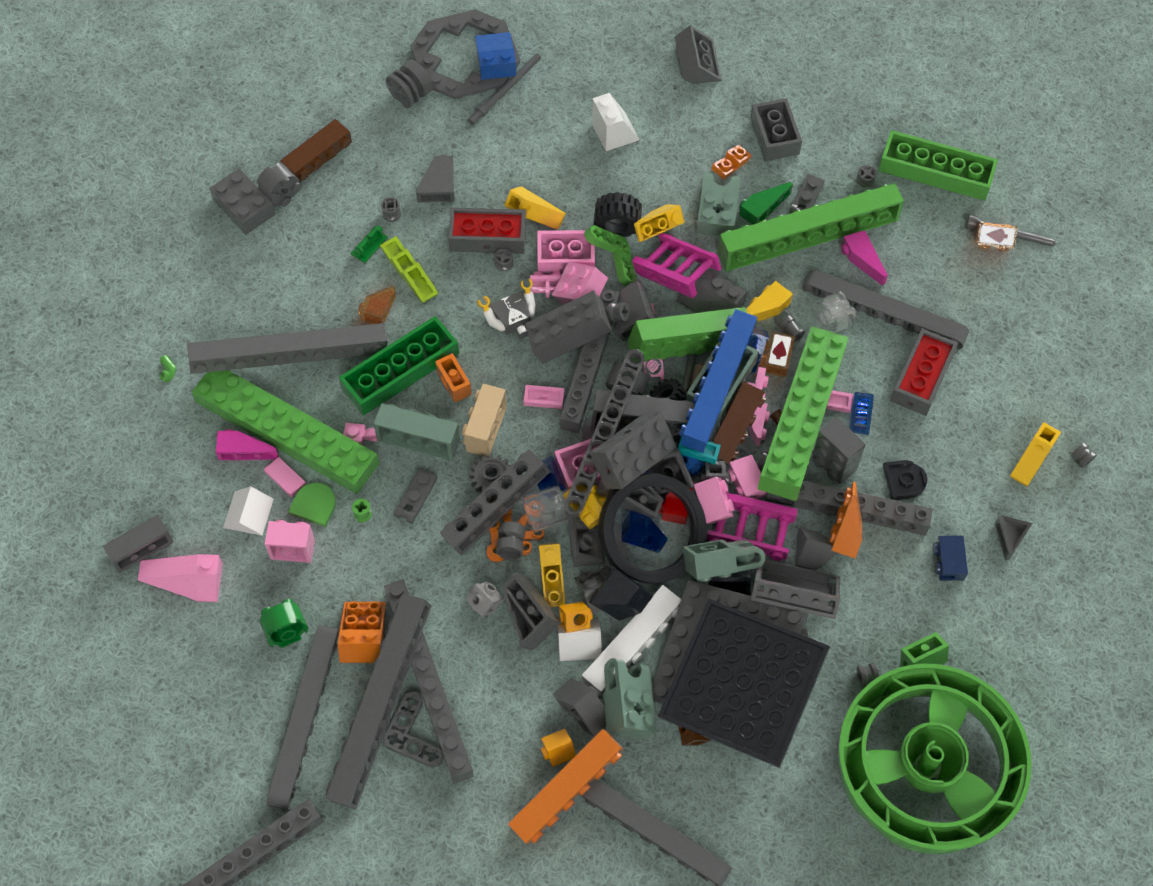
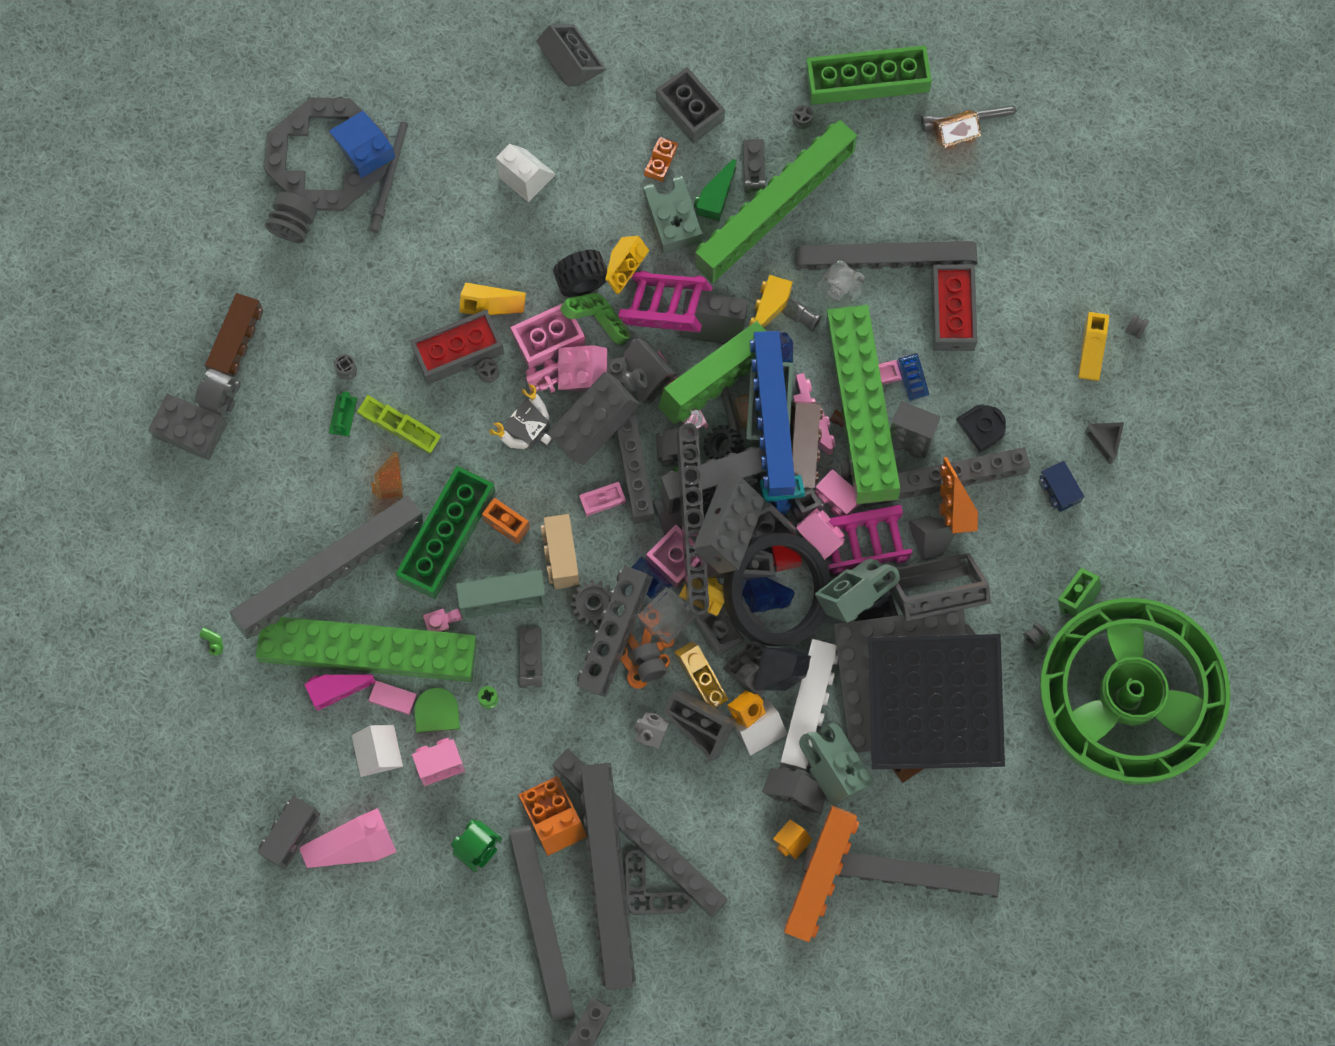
camera: 25 degrees left, 10 degrees up
(438, 181) = (378, 313): dark grey slope -> none
(778, 354) = (807, 351): brick -> none
(863, 255) = (839, 206): dark pink slope -> none

